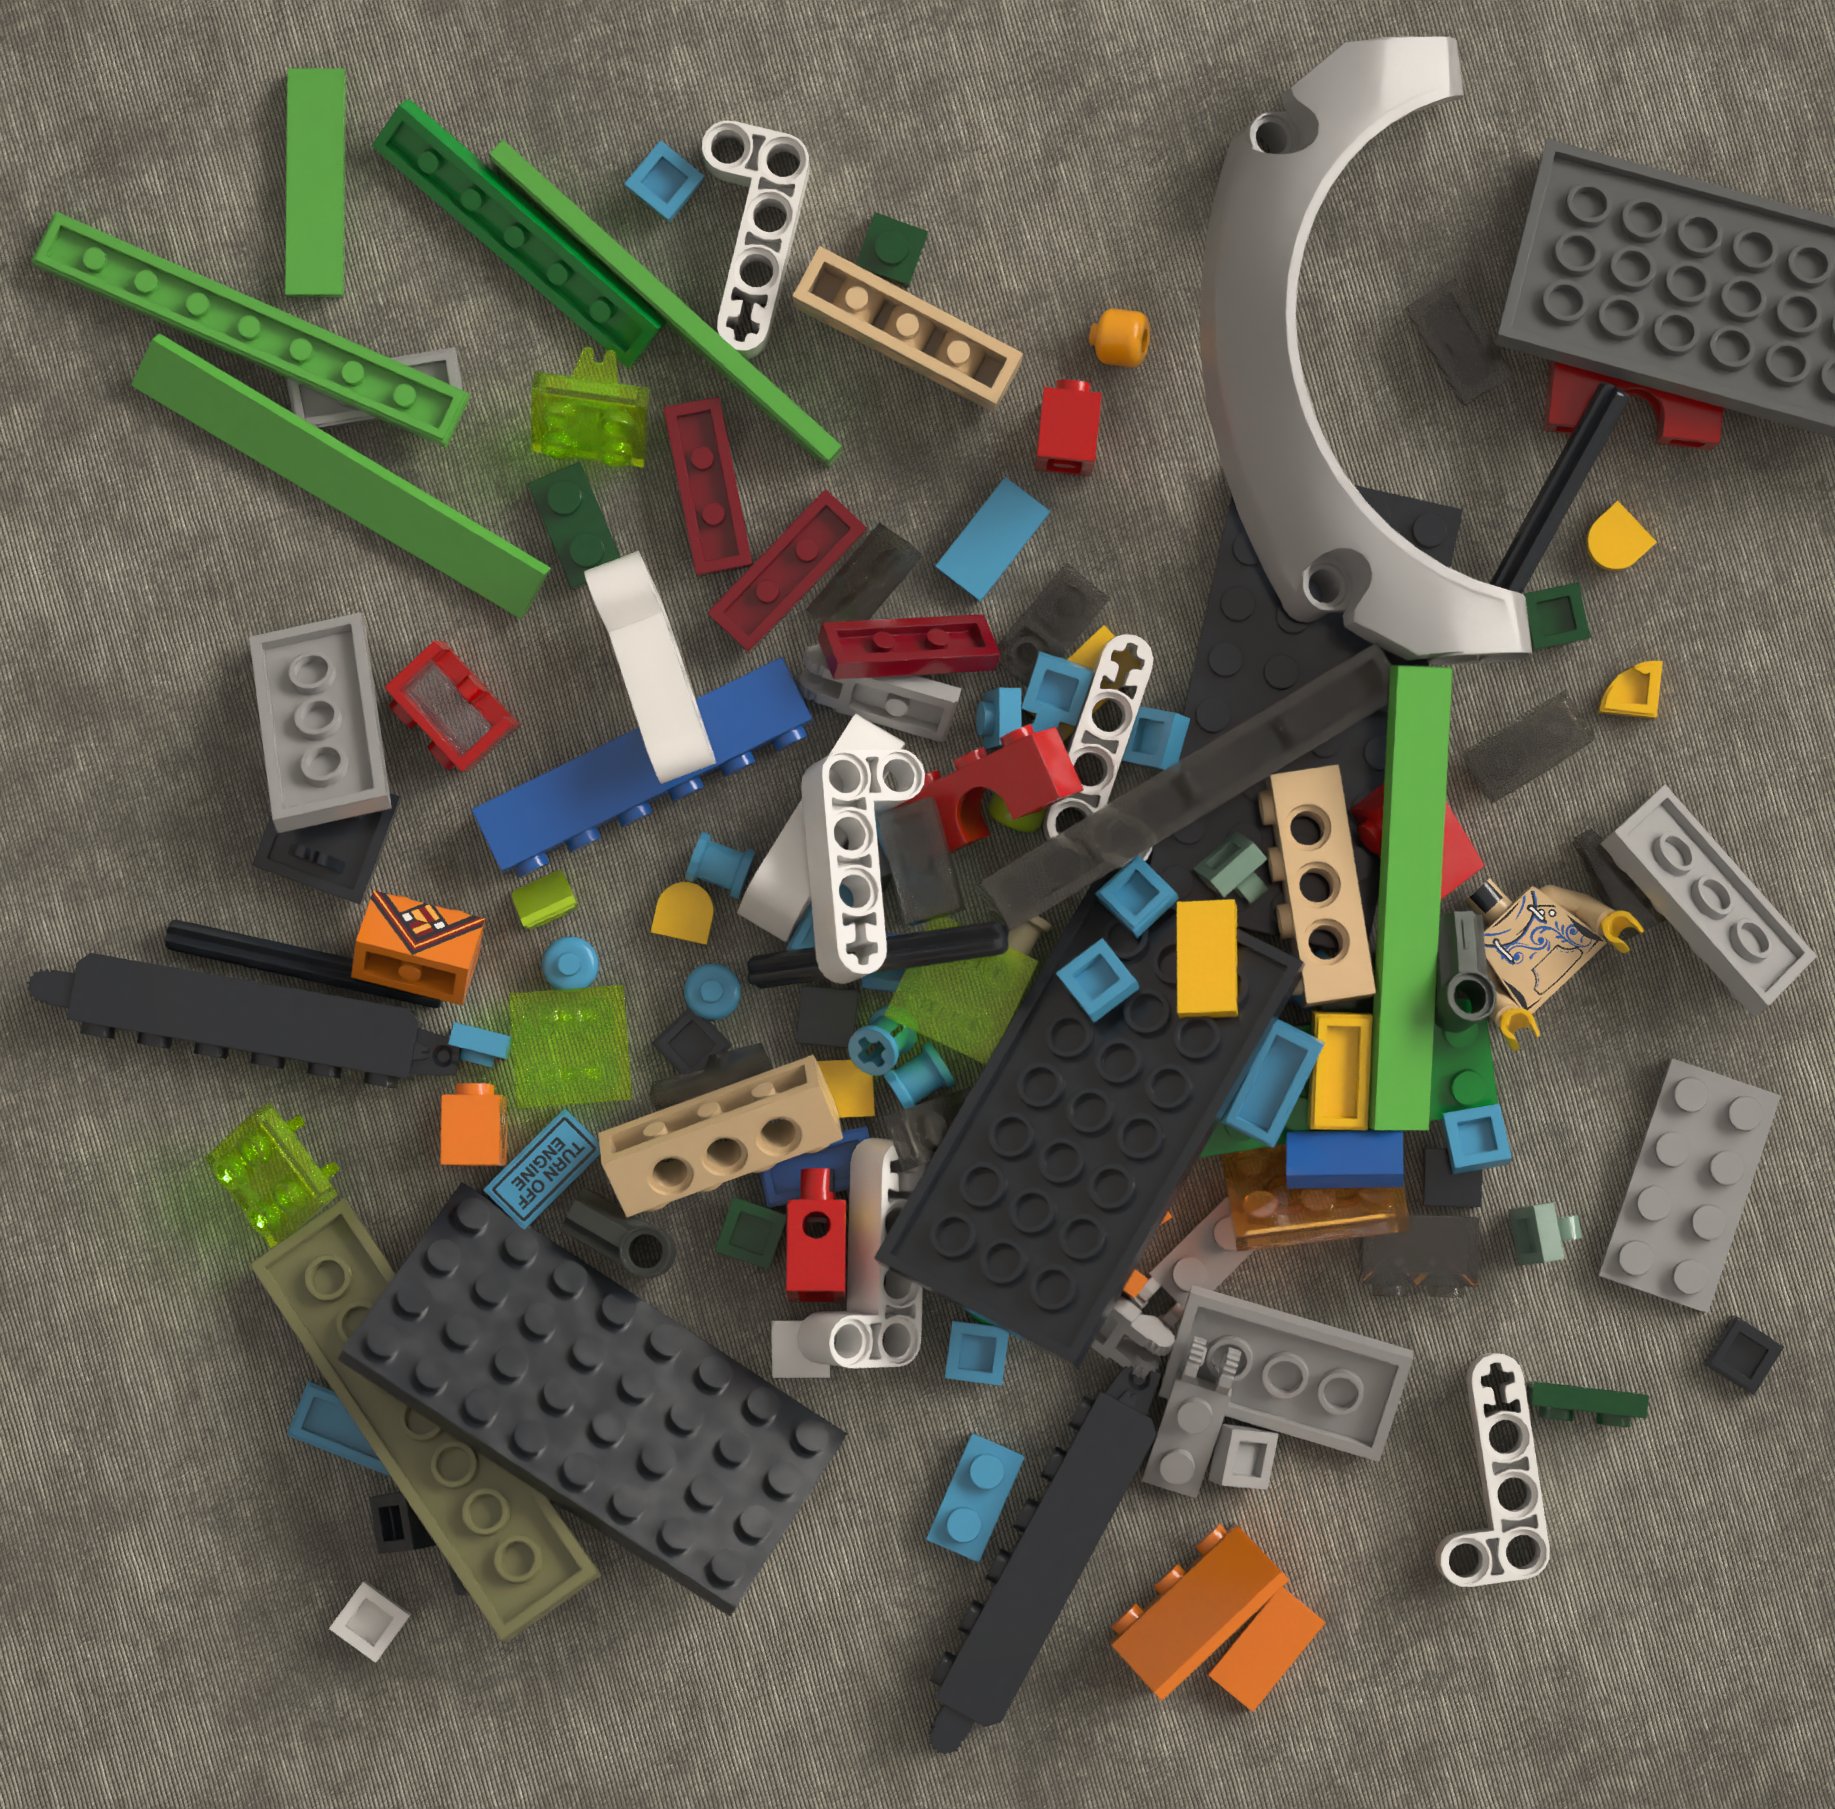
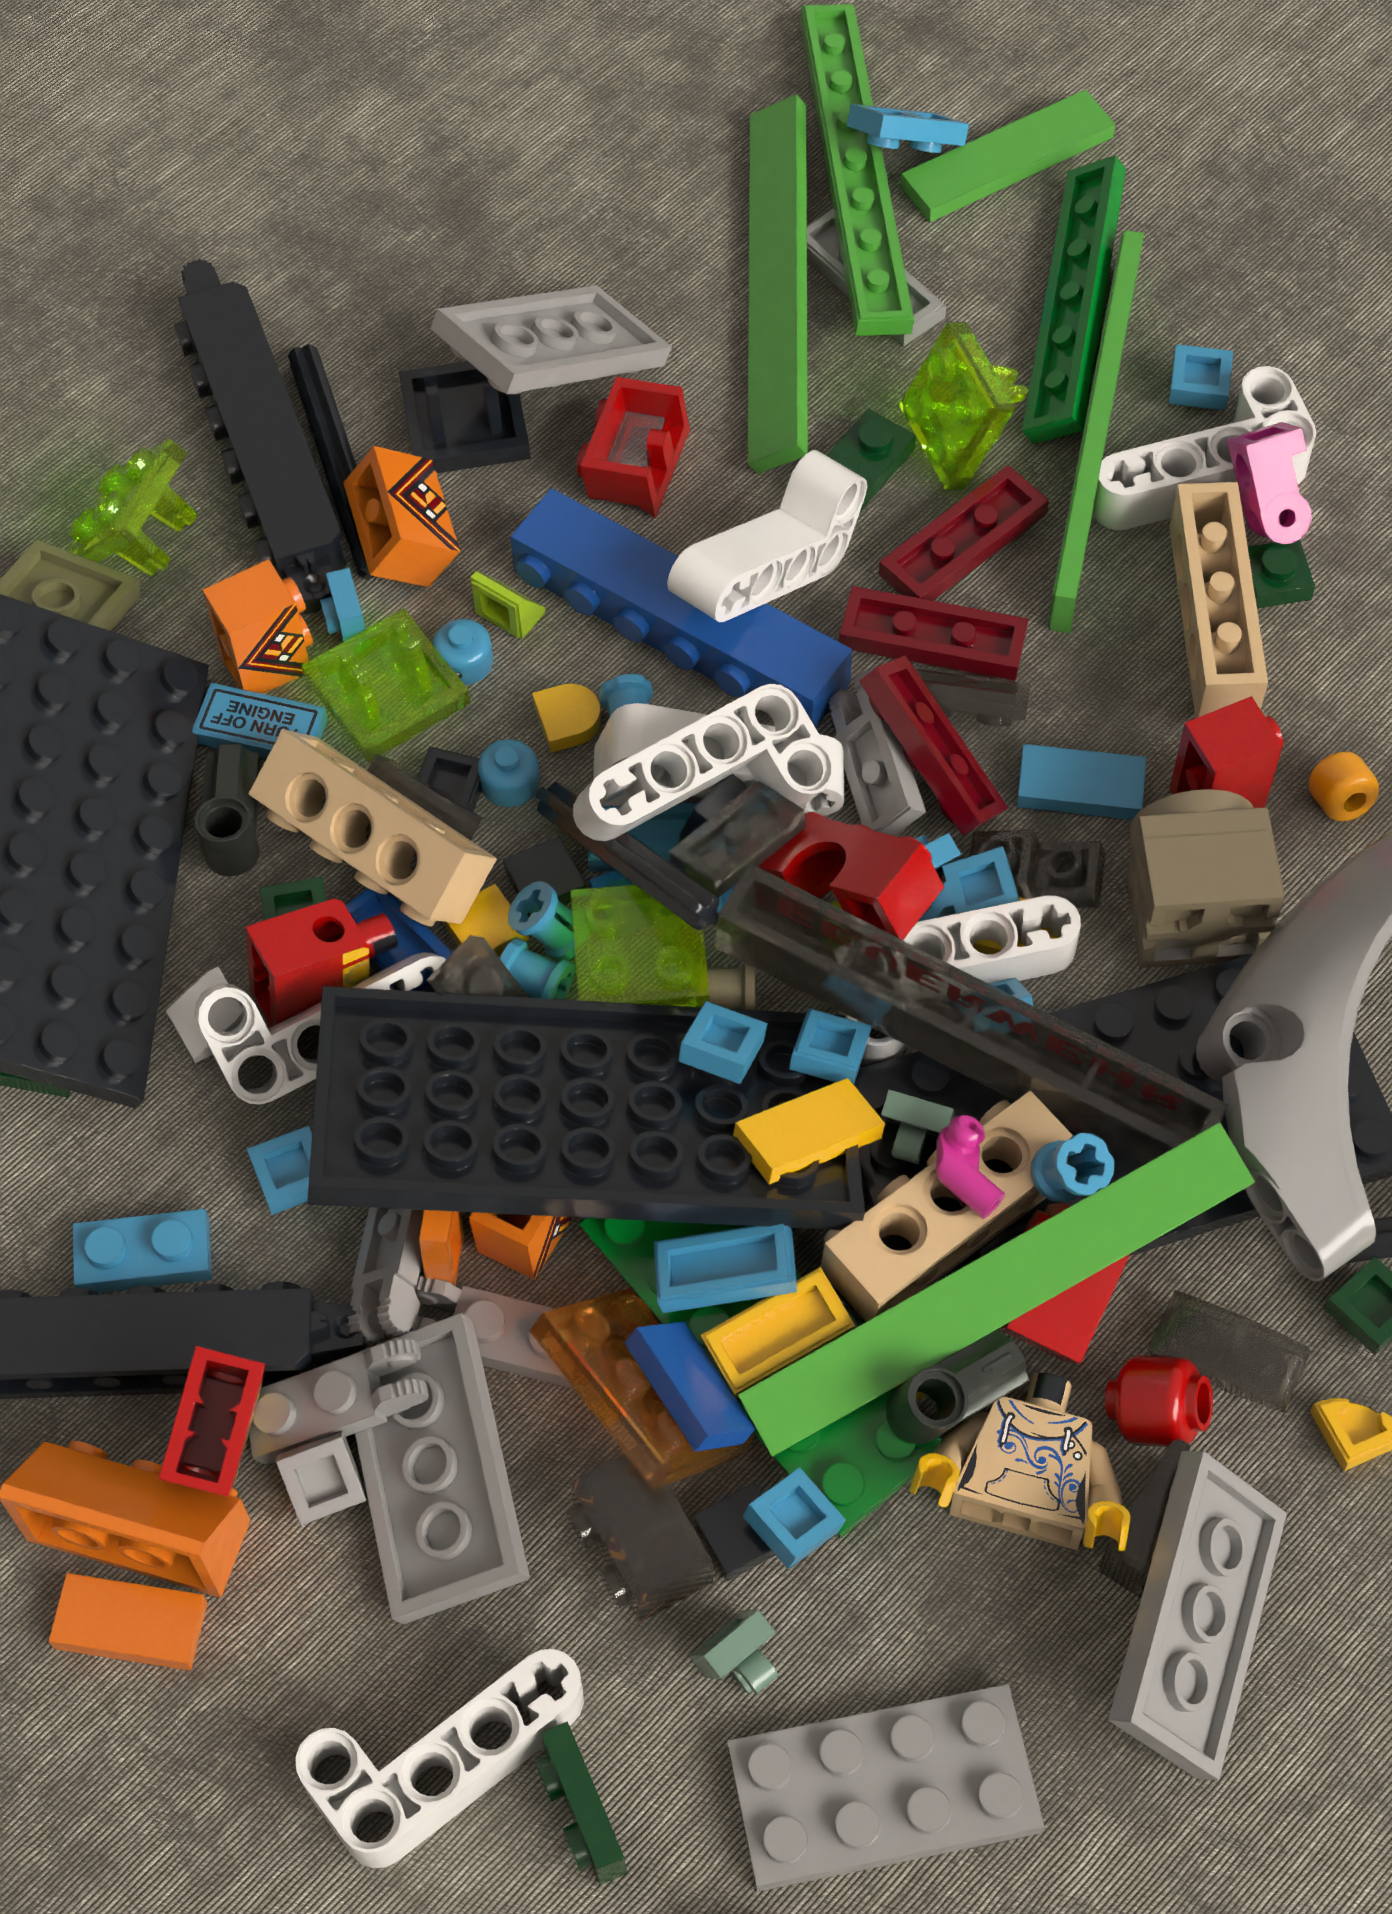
camera: 65 degrees right, 25 degrees down
(249, 263) = (923, 129): none -> dark azure plate
(811, 209) = (1269, 481): none -> leg
(1152, 515) = (1202, 879): none -> dark tan piece
(1177, 1512) = (212, 1421): none -> red torso
(1309, 871) = (959, 1165): none -> dark pink arm
(1359, 790) = (1057, 1179): none -> dark azure bush
(1538, 823) = (1159, 1400): none -> red head

